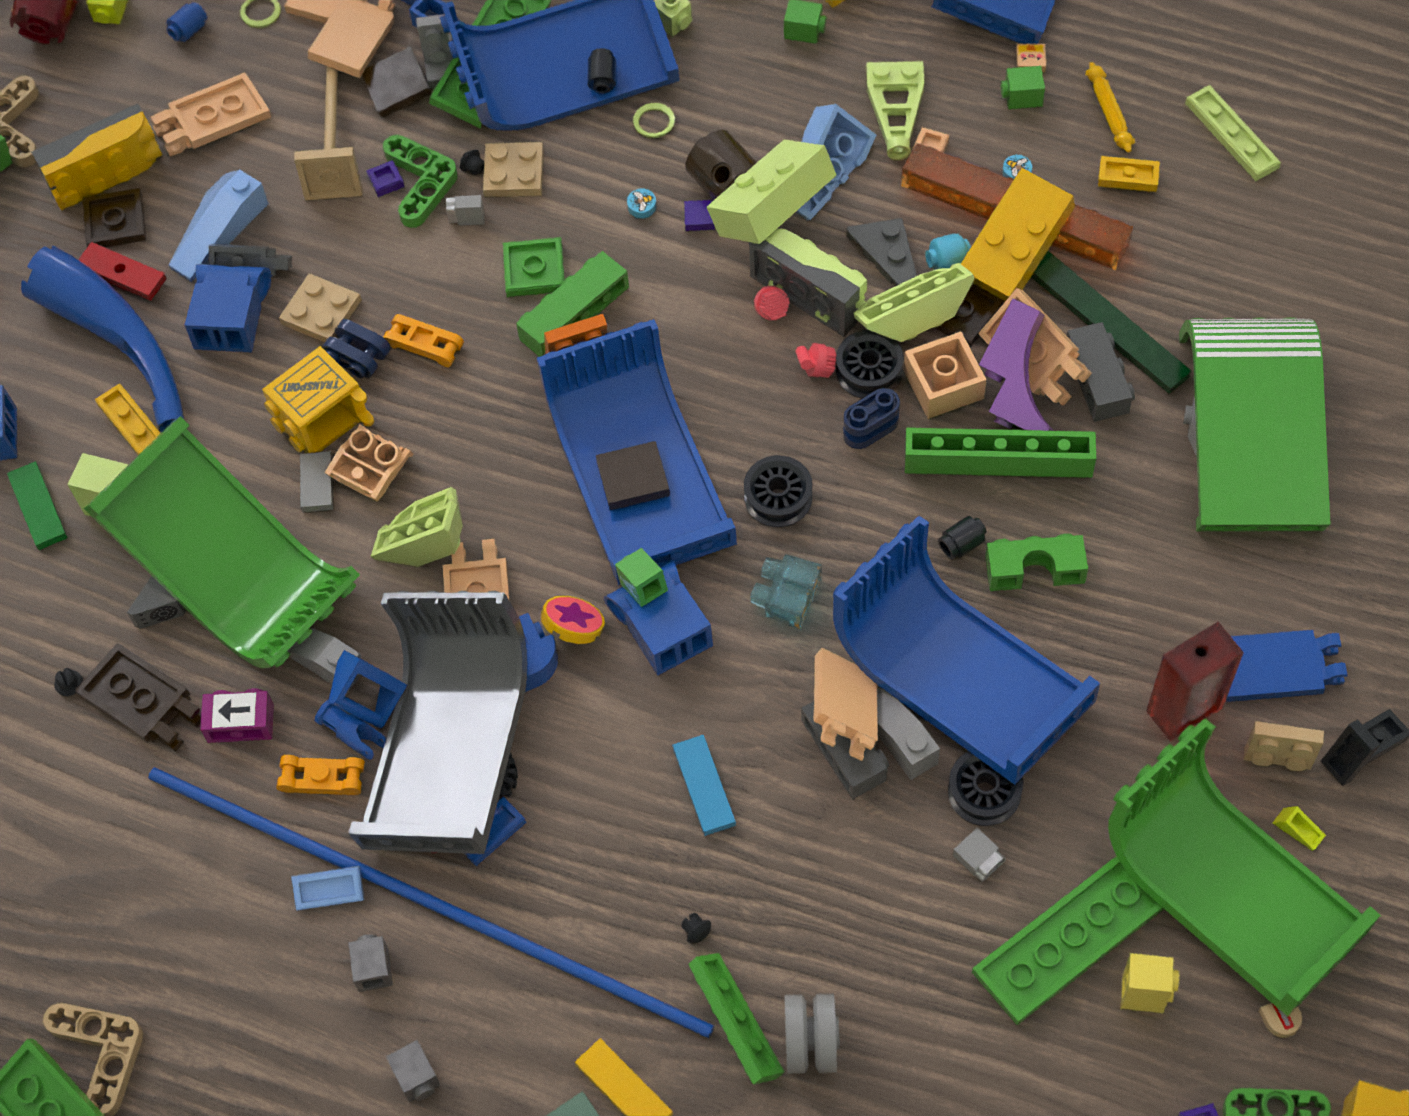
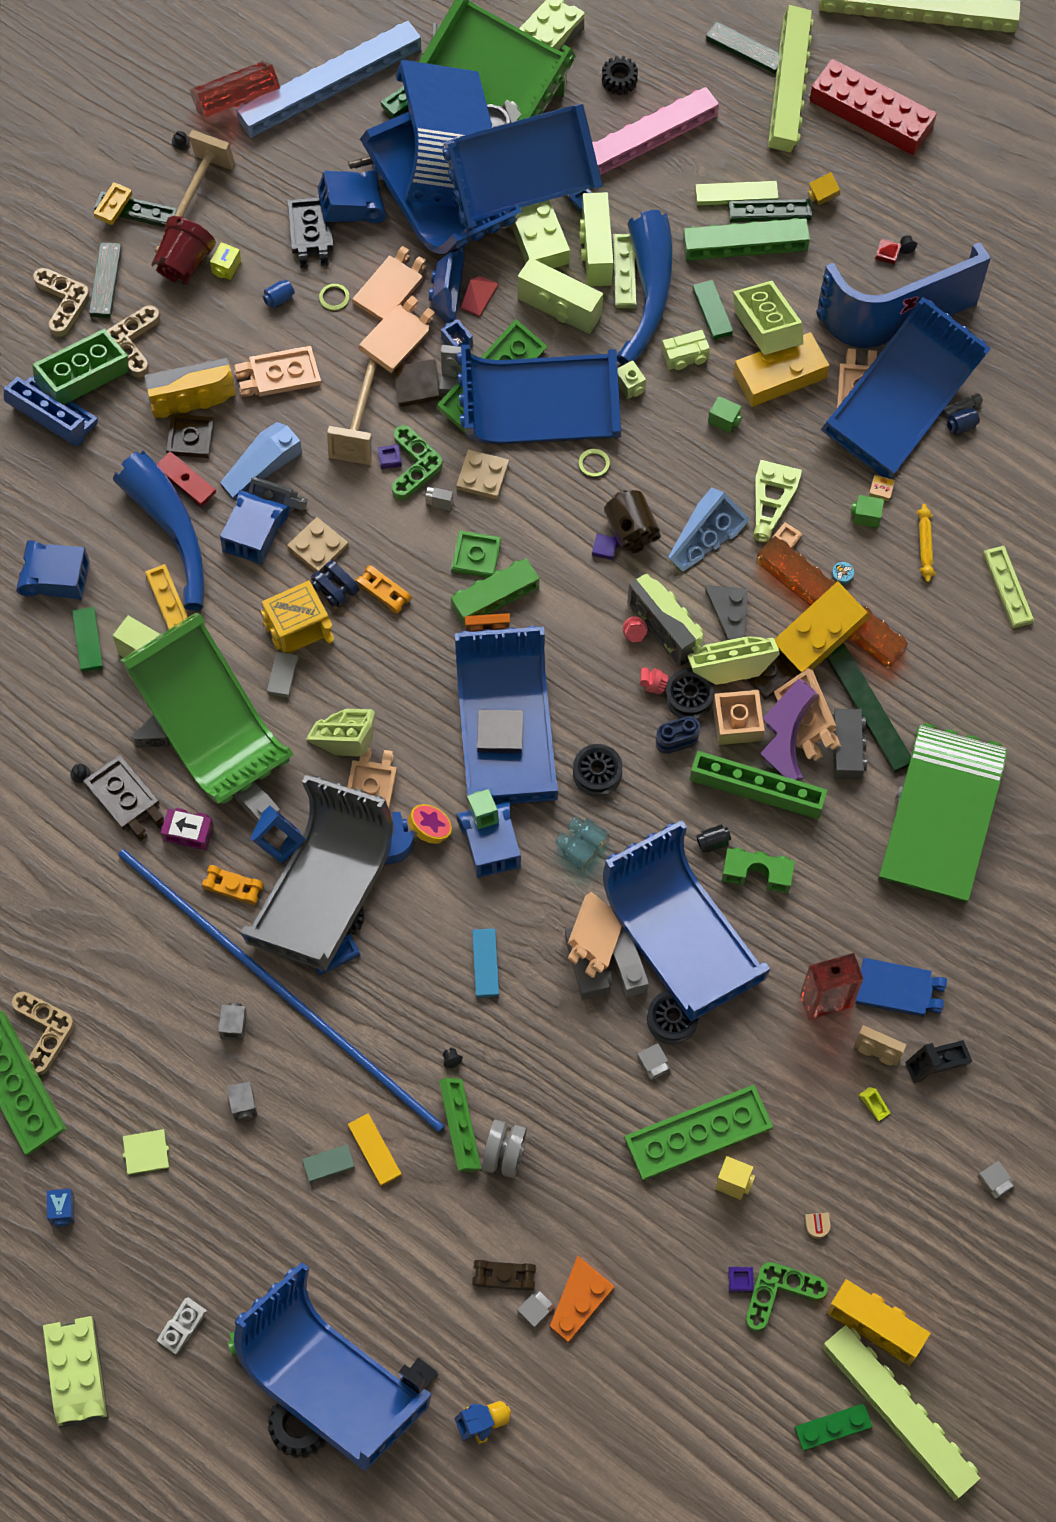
camera: 10 degrees right, 5 degrees up
(327, 888) = (217, 963): light blue tile -> none
(349, 729) = (259, 859): blue piece -> none
(366, 464) = (319, 672): light nougat slope -> none
(472, 162) = (454, 461): black piece -> none
(601, 71) = (565, 417): black brick -> none
(641, 203) = (566, 526): medium azure tile -> none
(771, 191) = (656, 549): yellowish green brick -> none
(946, 251) = (770, 624): medium azure head -> none
(1128, 173) = (921, 599): yellow plate -> none
(1230, 877) = (813, 1122): bright green panel -> none

